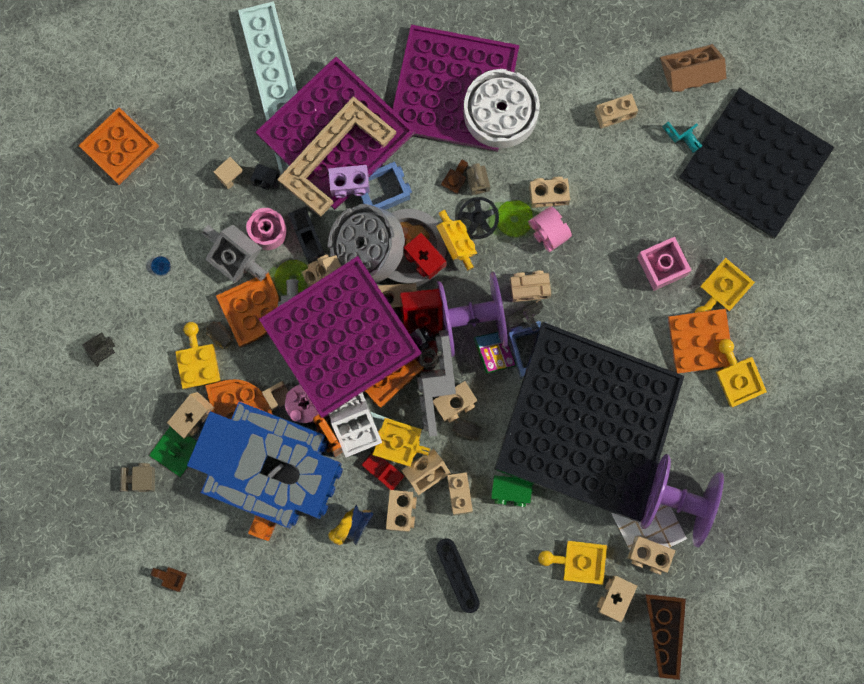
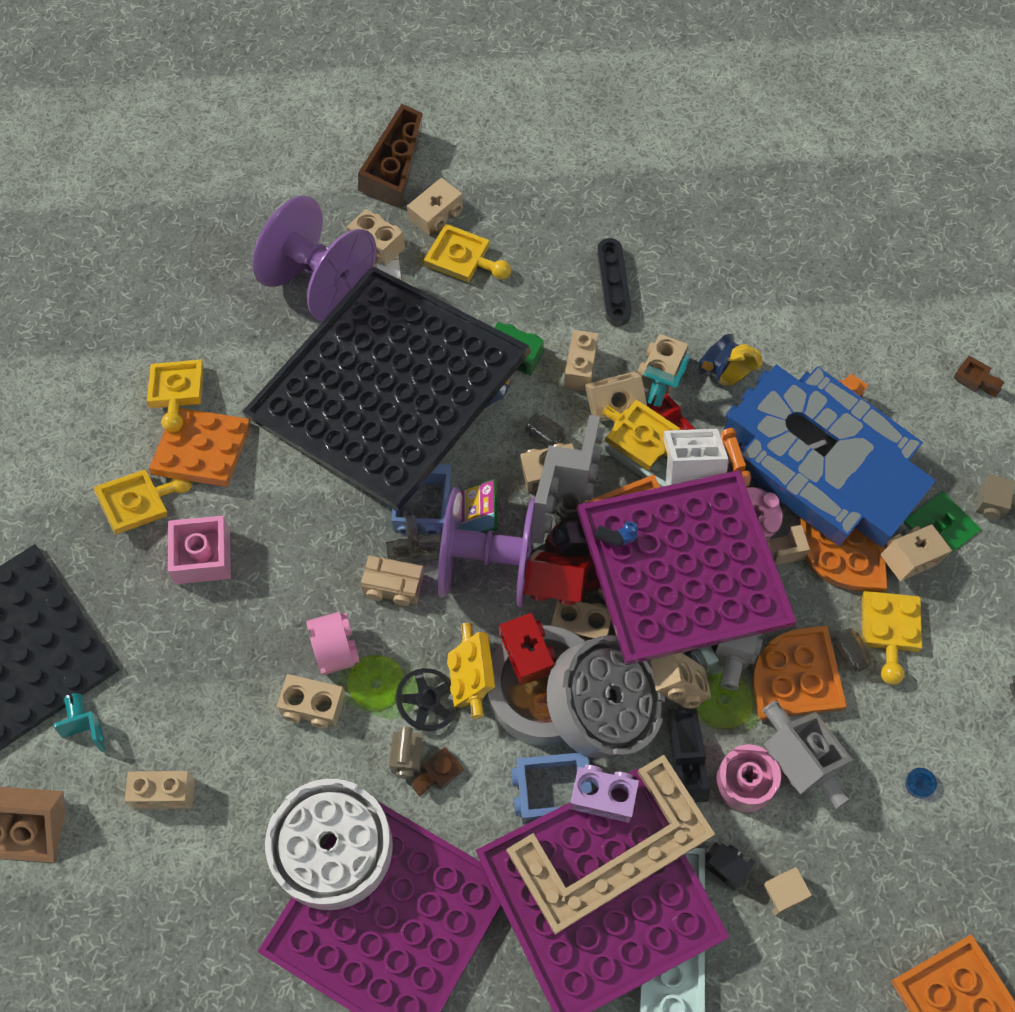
camera: 160 degrees left, 15 degrees down
(388, 334) = (619, 537): none -> arm
(394, 488) = (663, 380): none -> teal bracket

